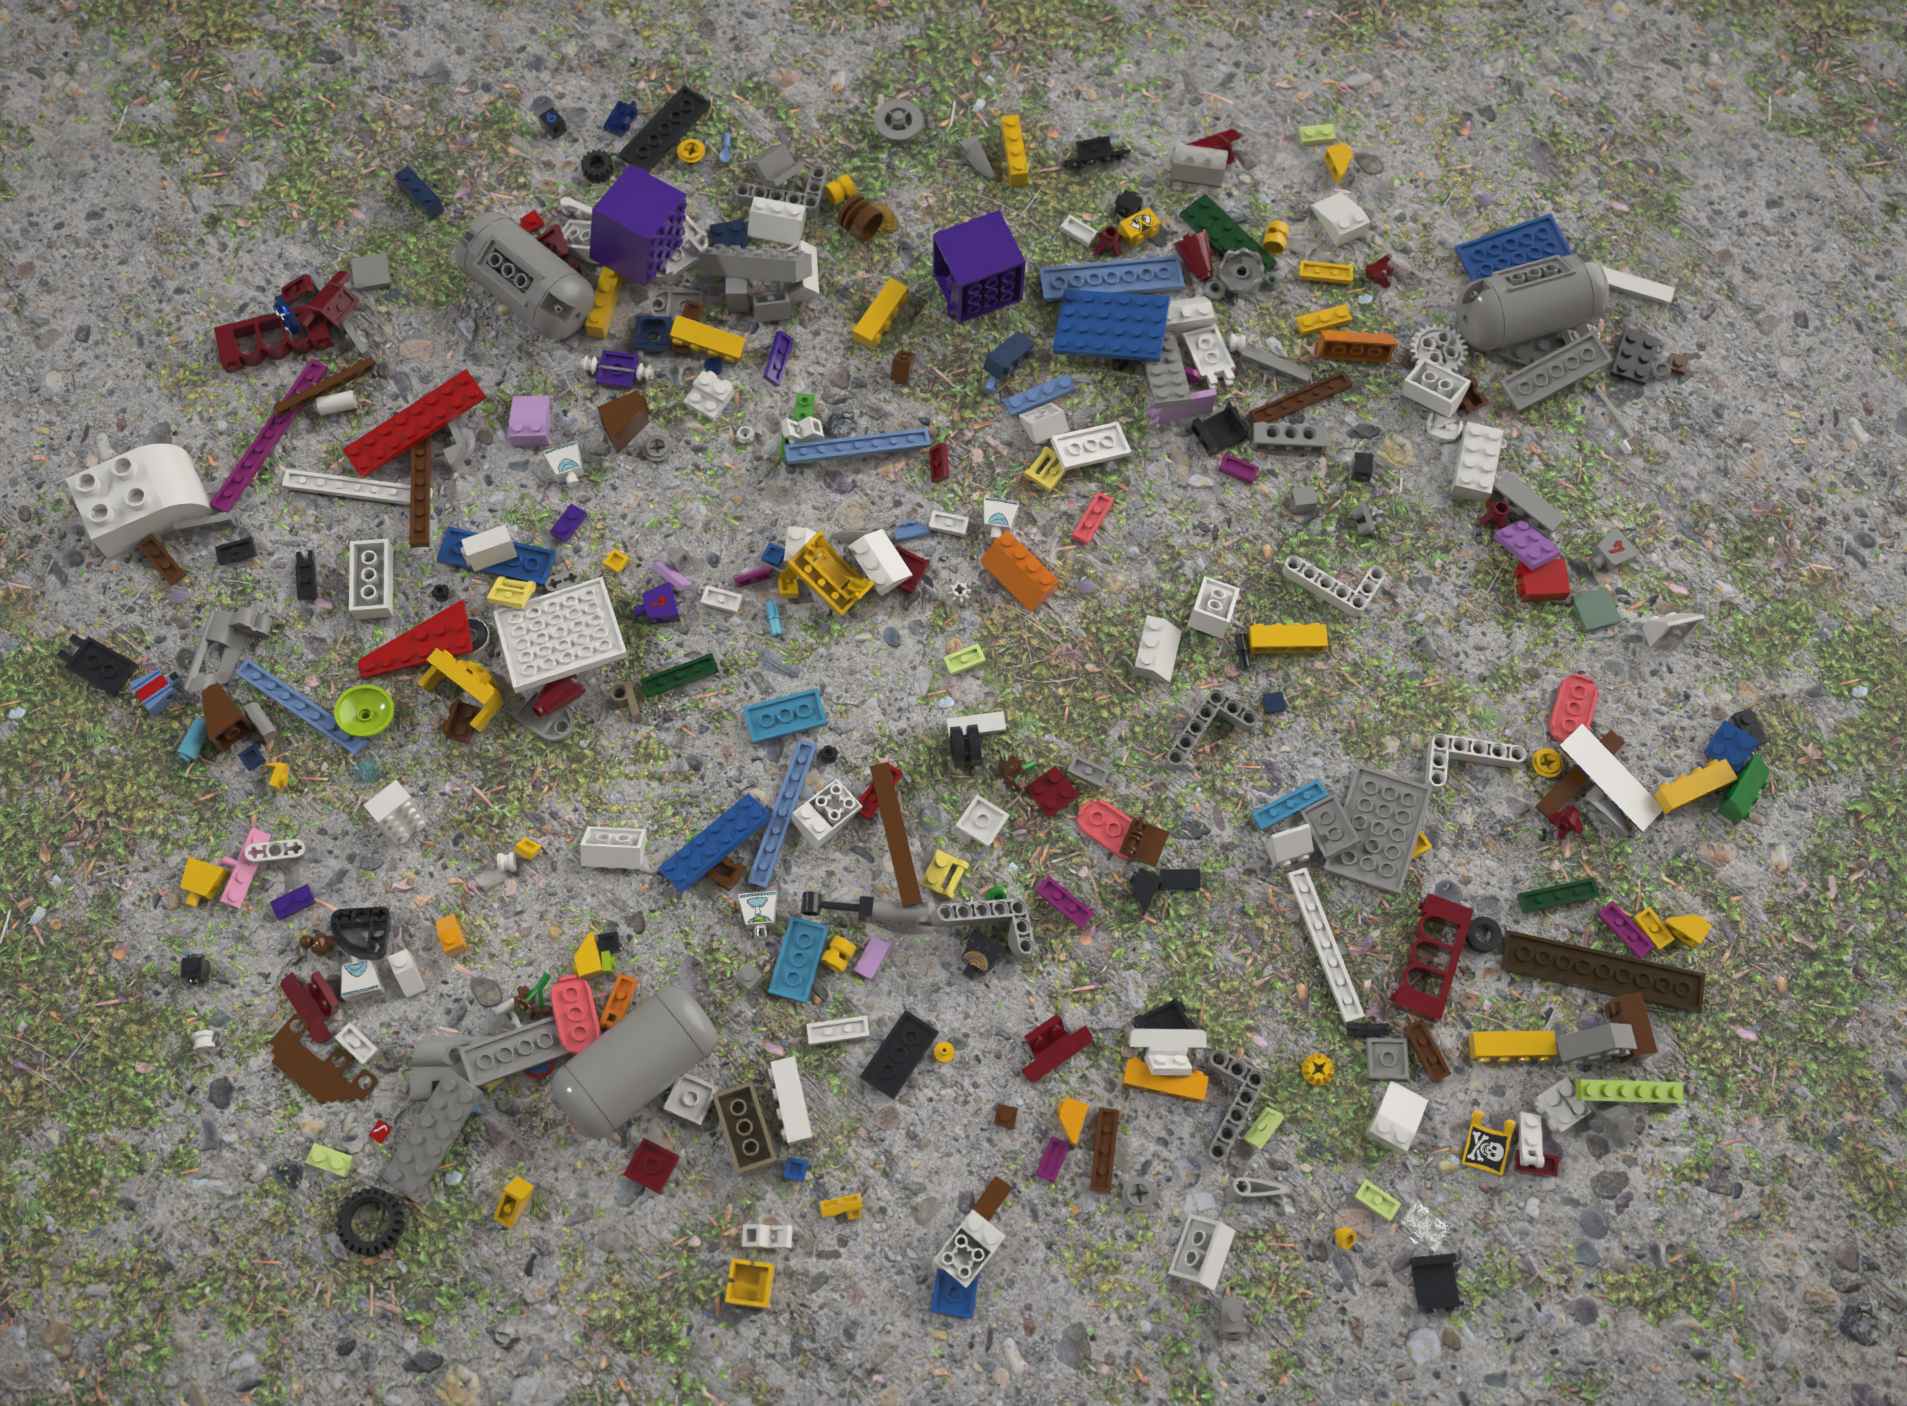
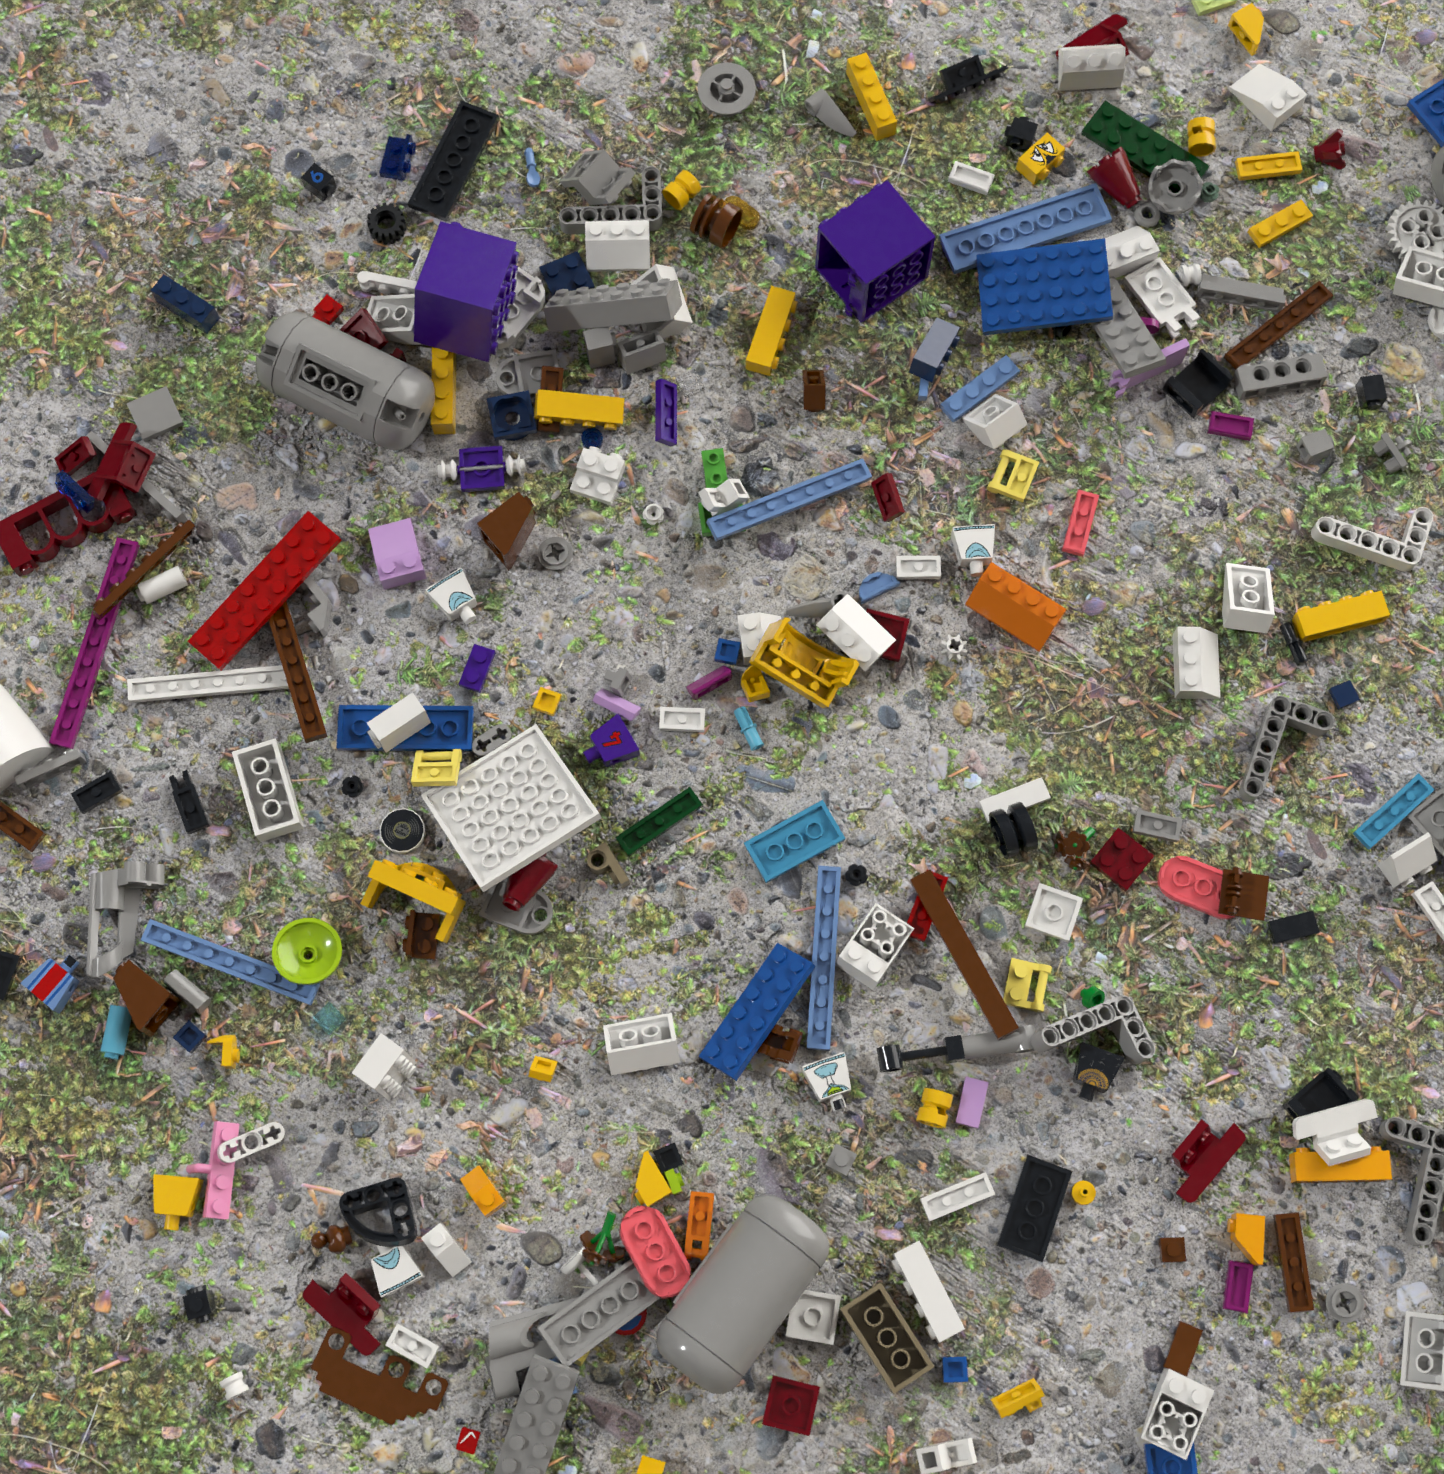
camera: 10 degrees left, 5 degrees up
(293, 902) = (288, 1196): dark purple plate -> none
(443, 631) = (350, 854): red wing -> none
(506, 862) = (523, 1091): white wheel -> none
(686, 147) = (484, 176): yellow gear -> none
(798, 960) = (890, 1125): dark azure plate -> none
(964, 659) = (980, 726): yellowish green plate -> none
(1064, 902) = (1172, 986): magenta plate -> none
(1090, 446) = (1057, 437): white plate -> none
(1109, 241) = (1010, 183): dark red rock -> none
(1143, 888) = (1257, 949): black slope -> none
(1355, 346) = (1327, 247): orange slope -> none

